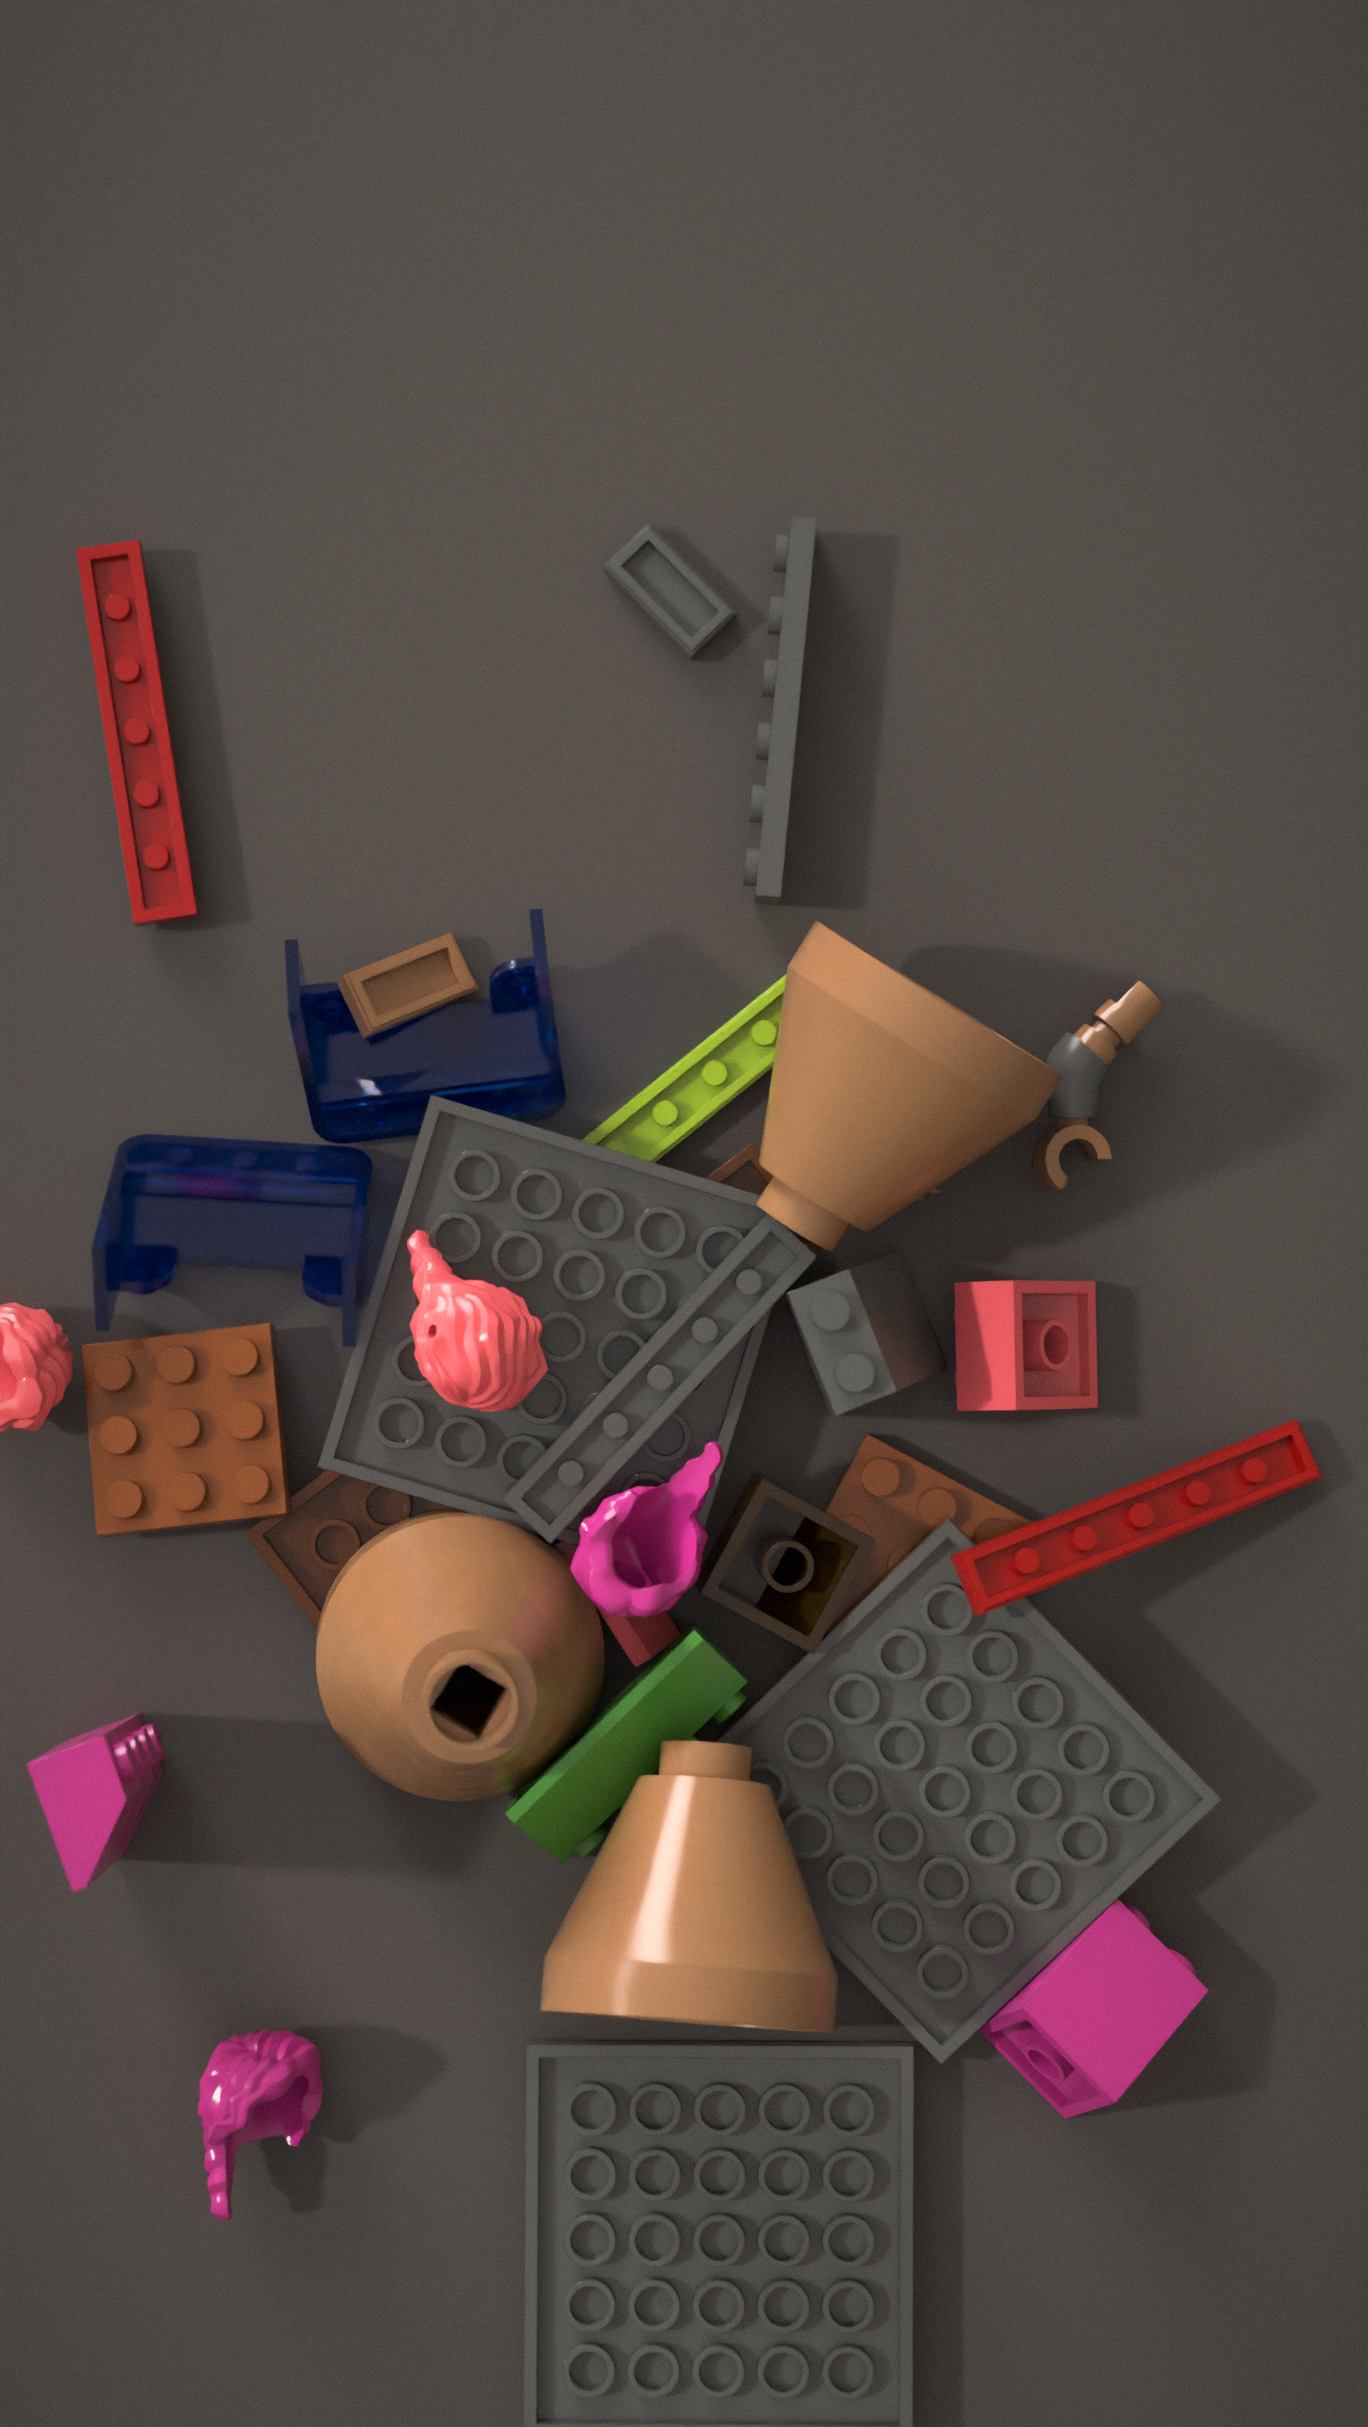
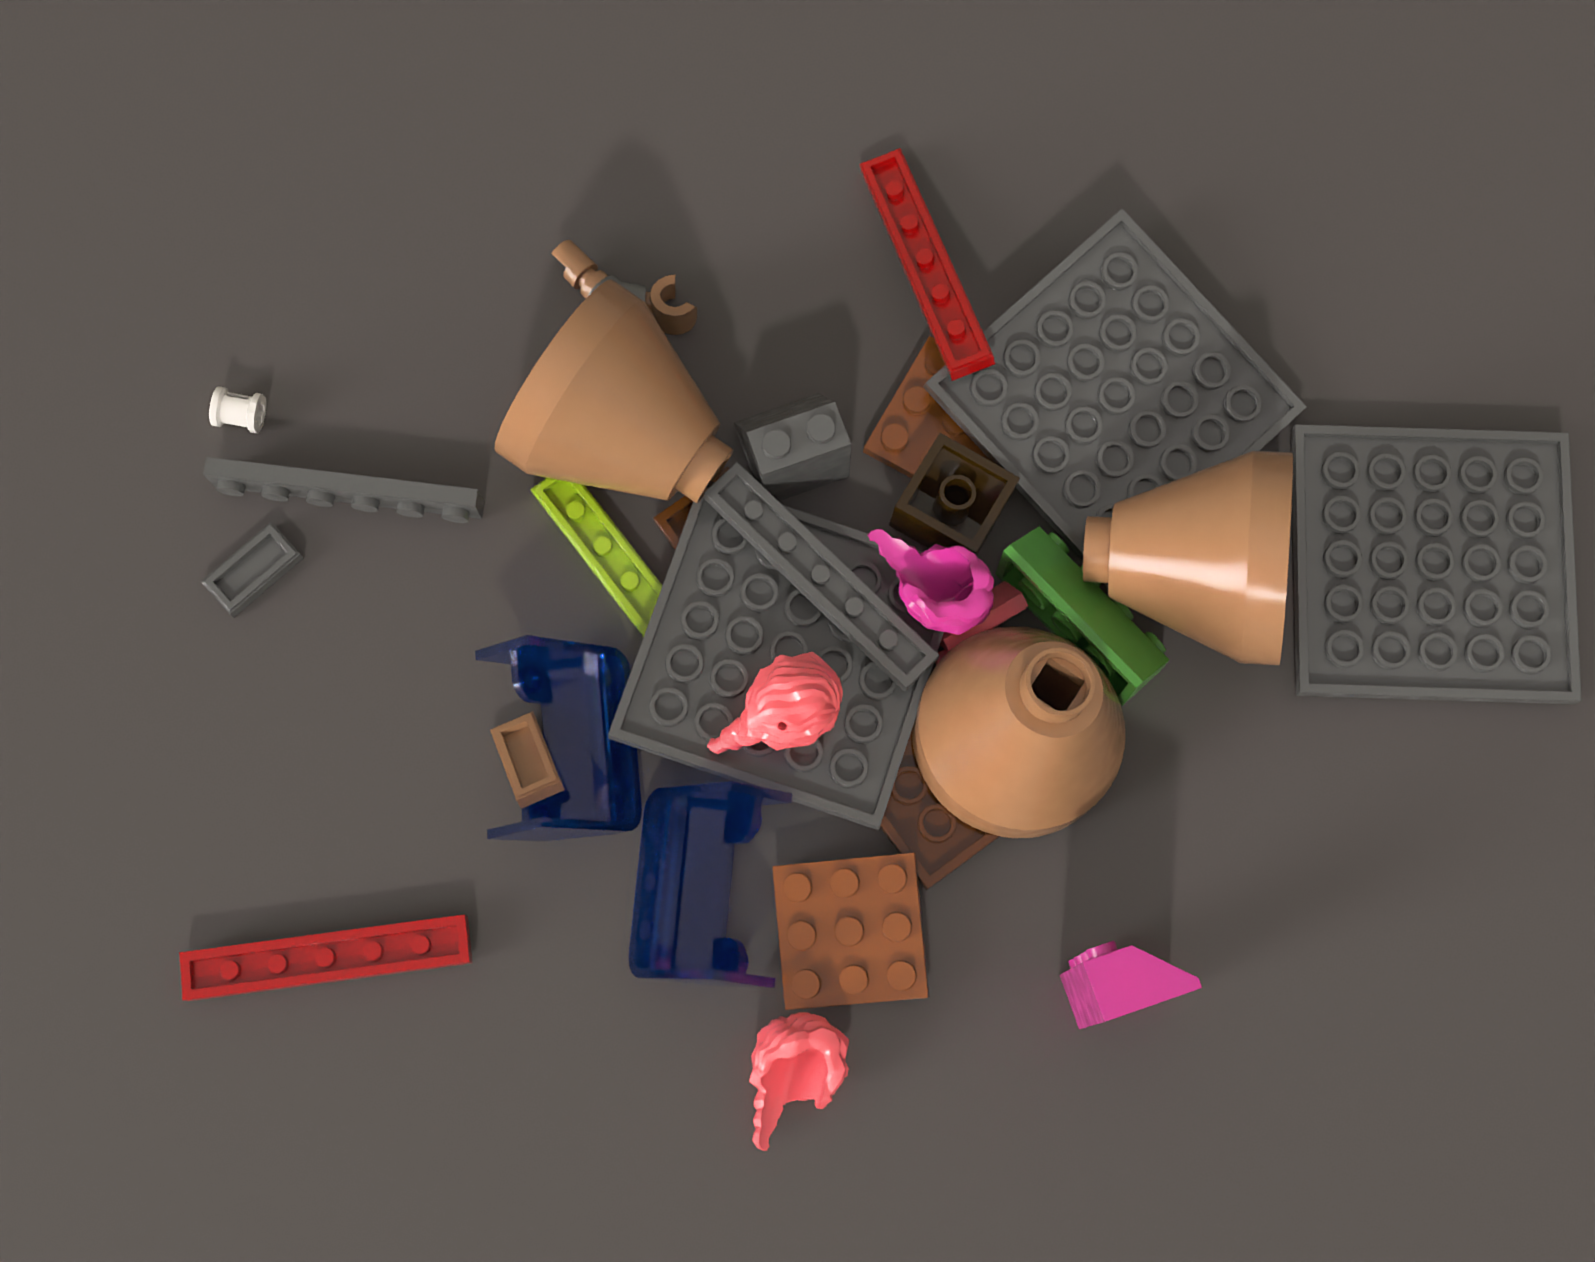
camera: 85 degrees left, 10 degrees down
(253, 2091) = (1338, 888): dark pink hair -> none
(896, 553) = (237, 409): none -> white bush
(1025, 1345) = (803, 339): coral slope -> none
(1096, 2012) = (1273, 300): dark pink slope -> none

